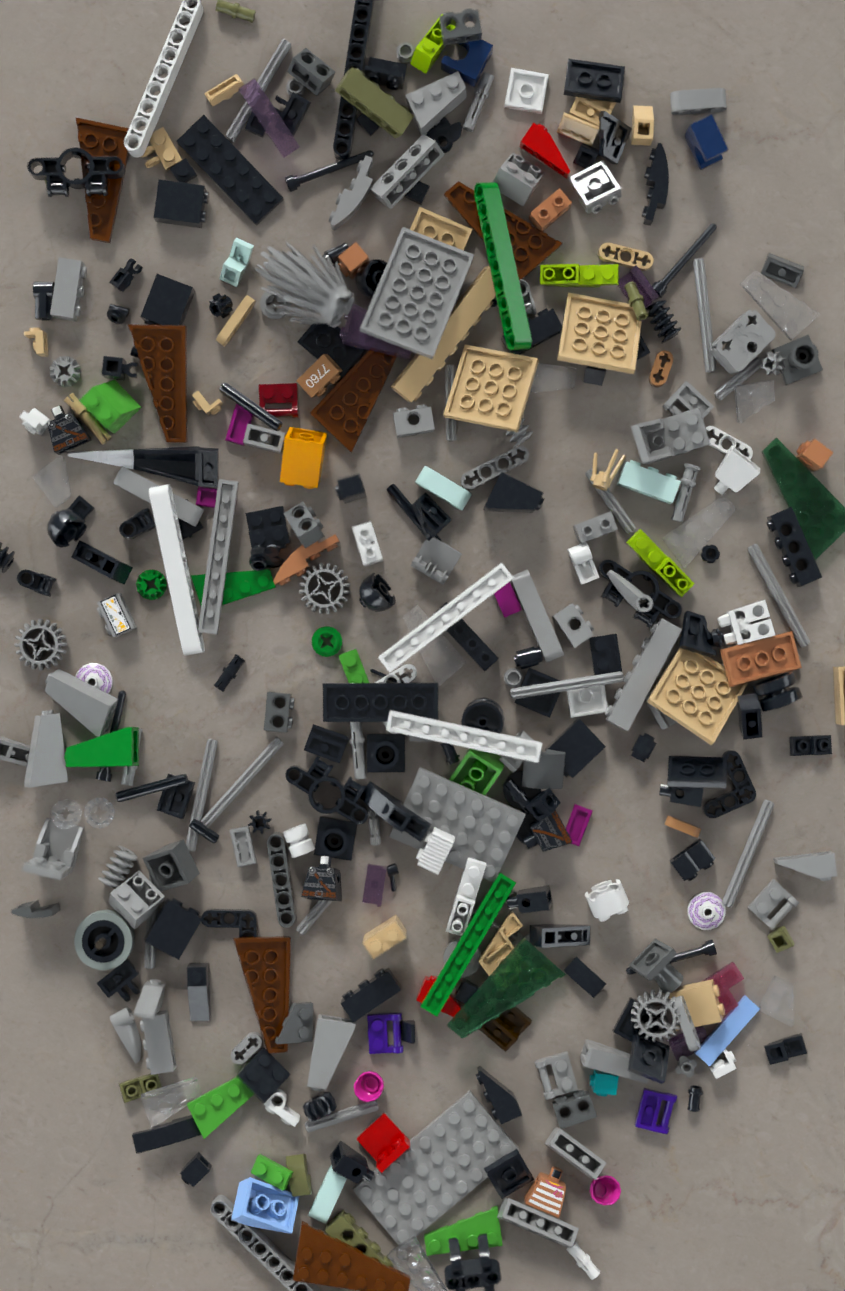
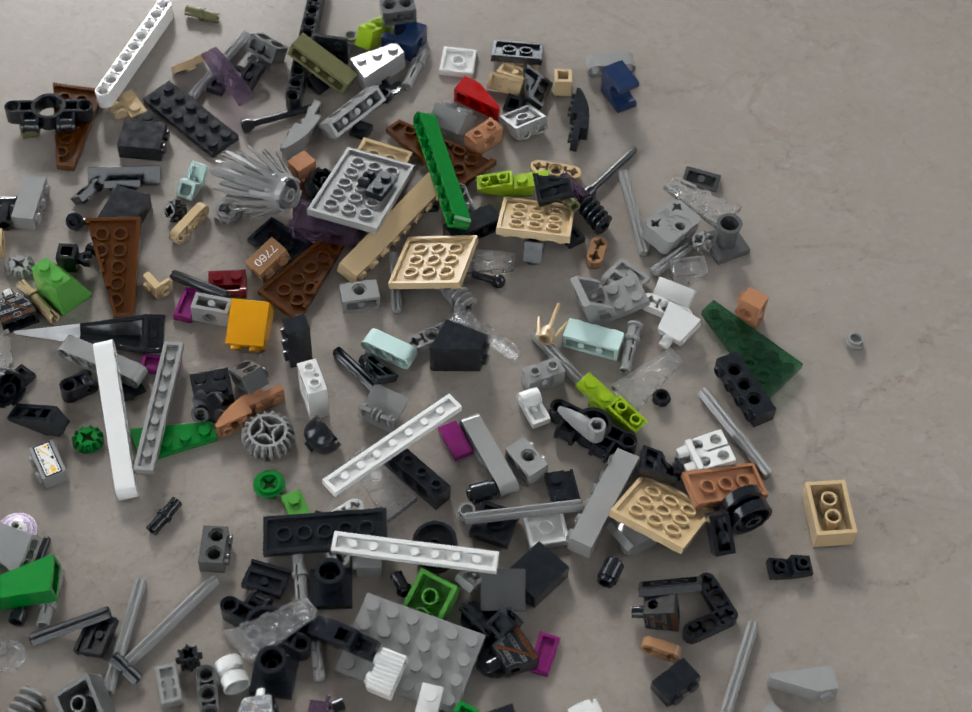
camera: 10 degrees left, 35 degrees down
(163, 257) = (125, 176): none -> bracket
(331, 806) = (270, 628): none -> clear wing
(438, 291) = (377, 185): none -> black hinge
(525, 469) = (499, 342): none -> clear wing
(556, 401) = (497, 280): none -> black bar
(620, 295) = (552, 189): none -> black wing
(736, 427) = (674, 292): none -> white slope

